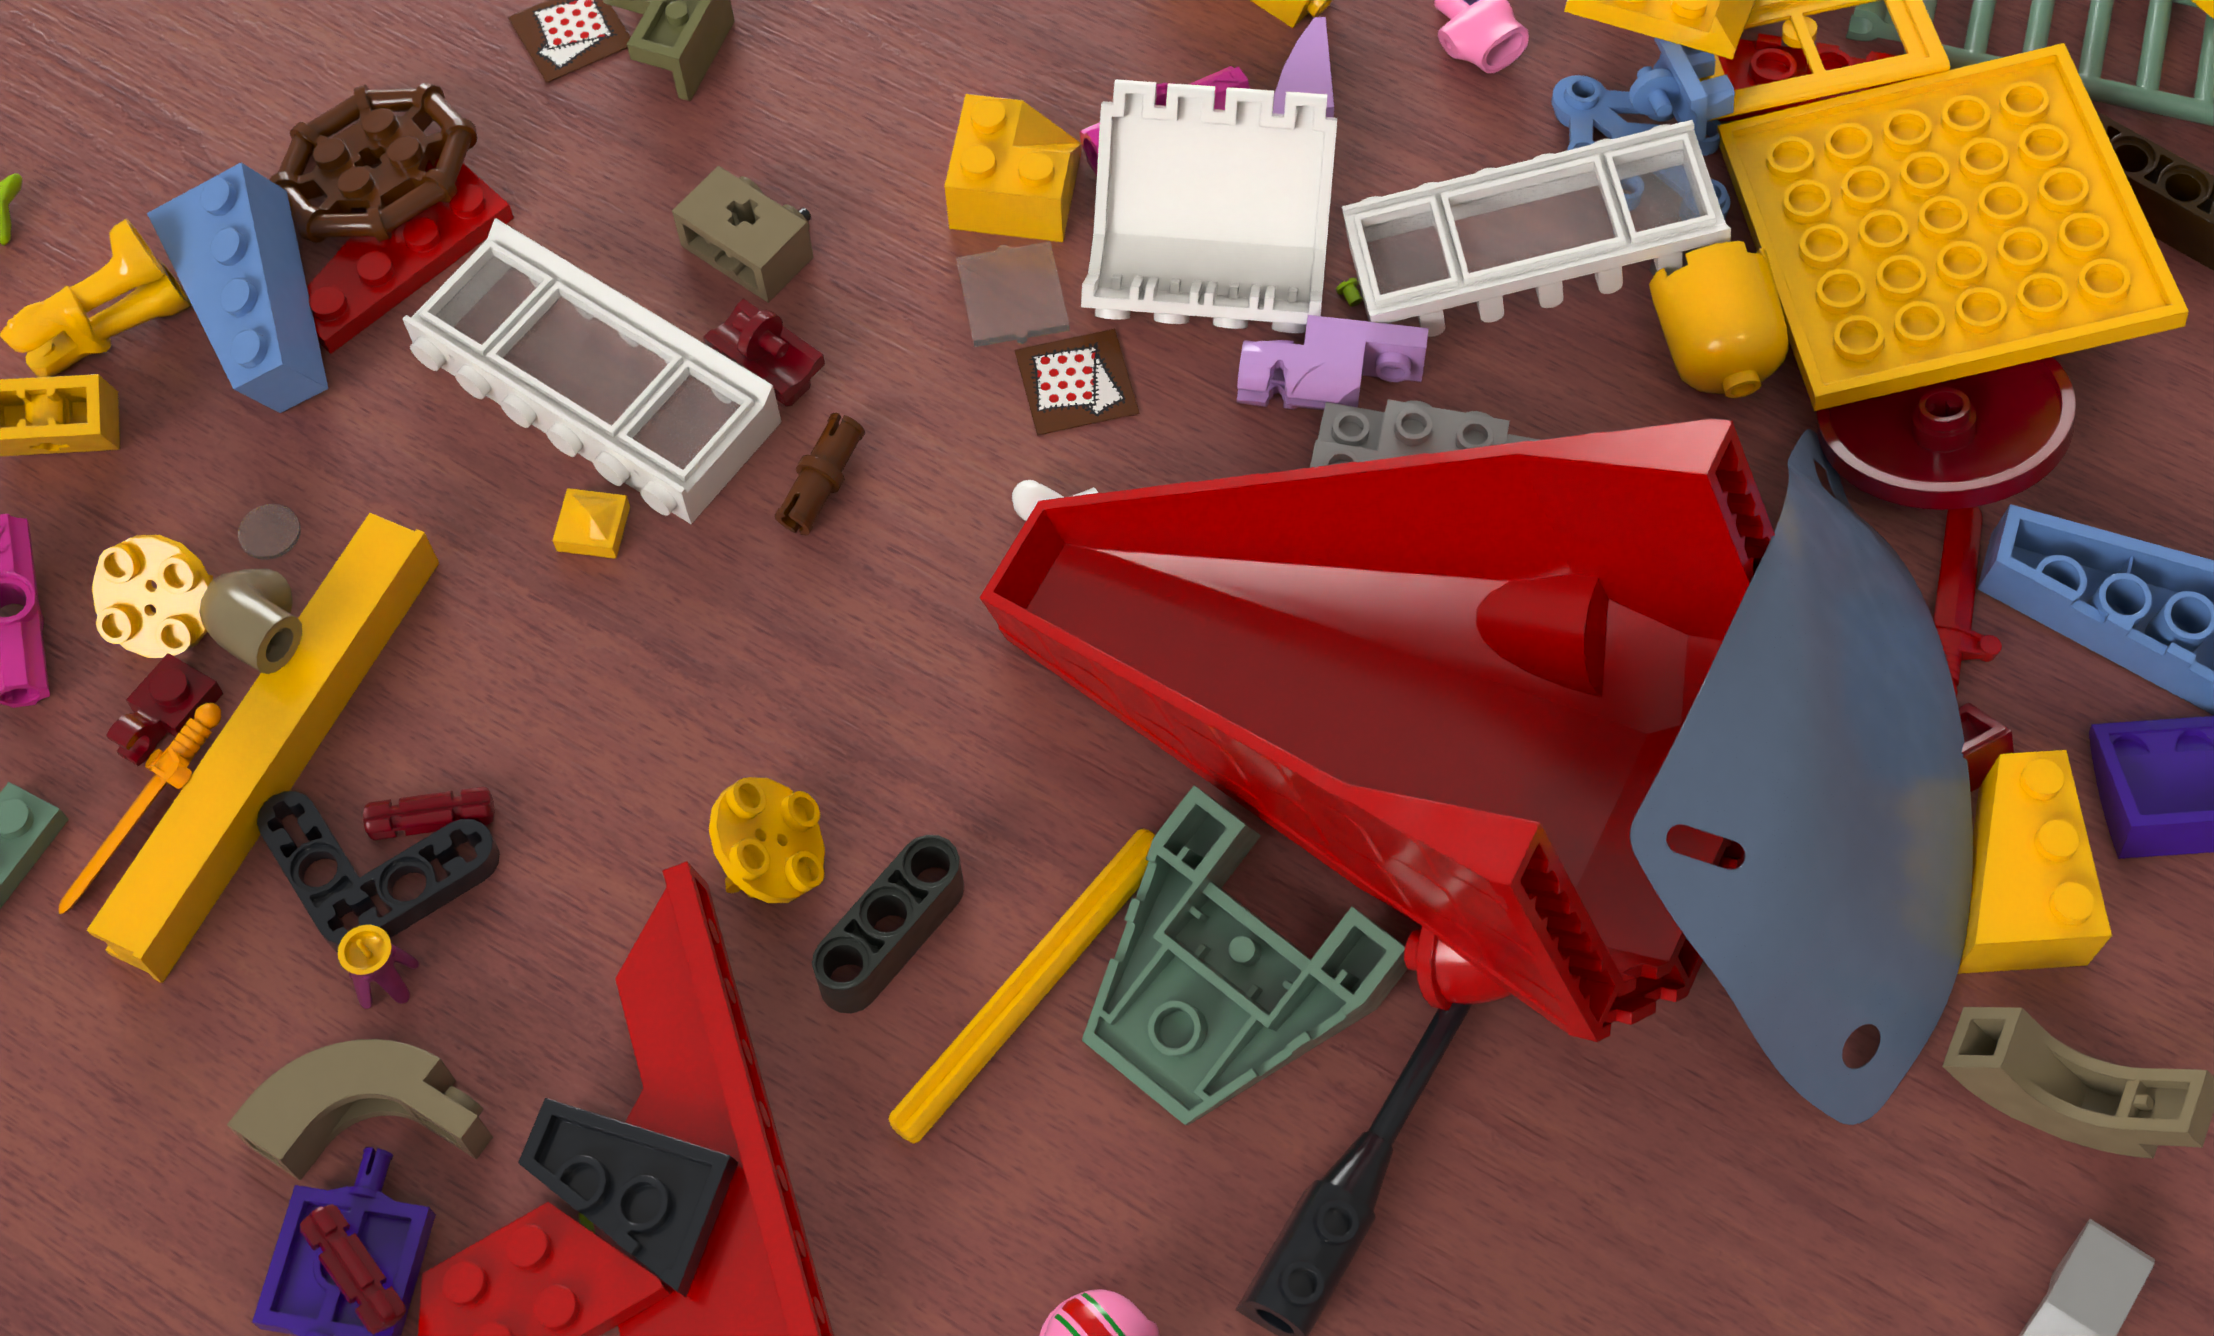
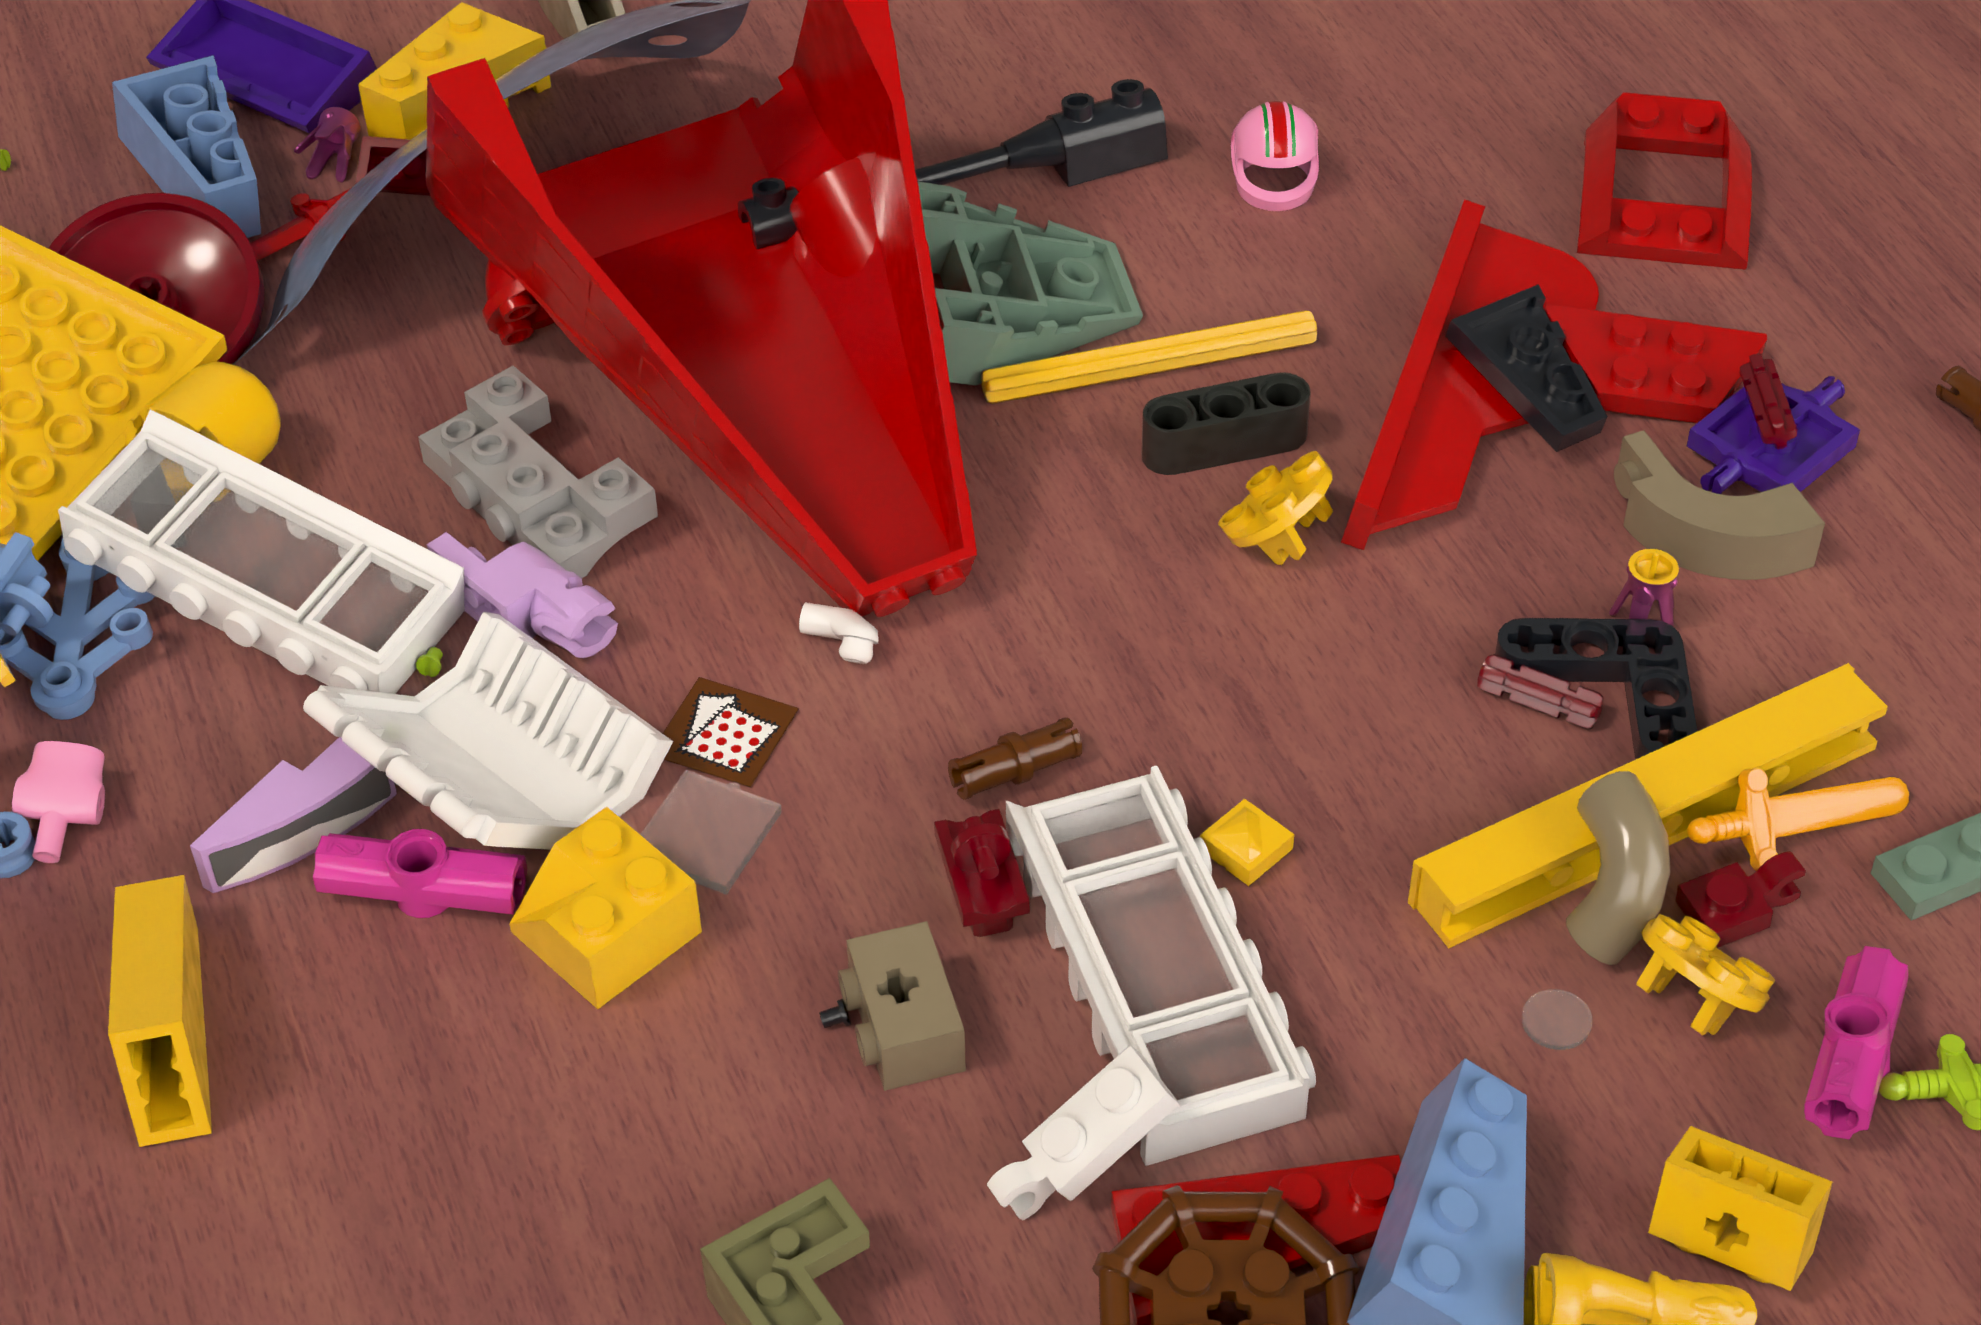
camera: 145 degrees left, 15 degrees down
(534, 198) = (1086, 1134): none -> white plate
(2055, 727) = (336, 134): none -> flat silver piece

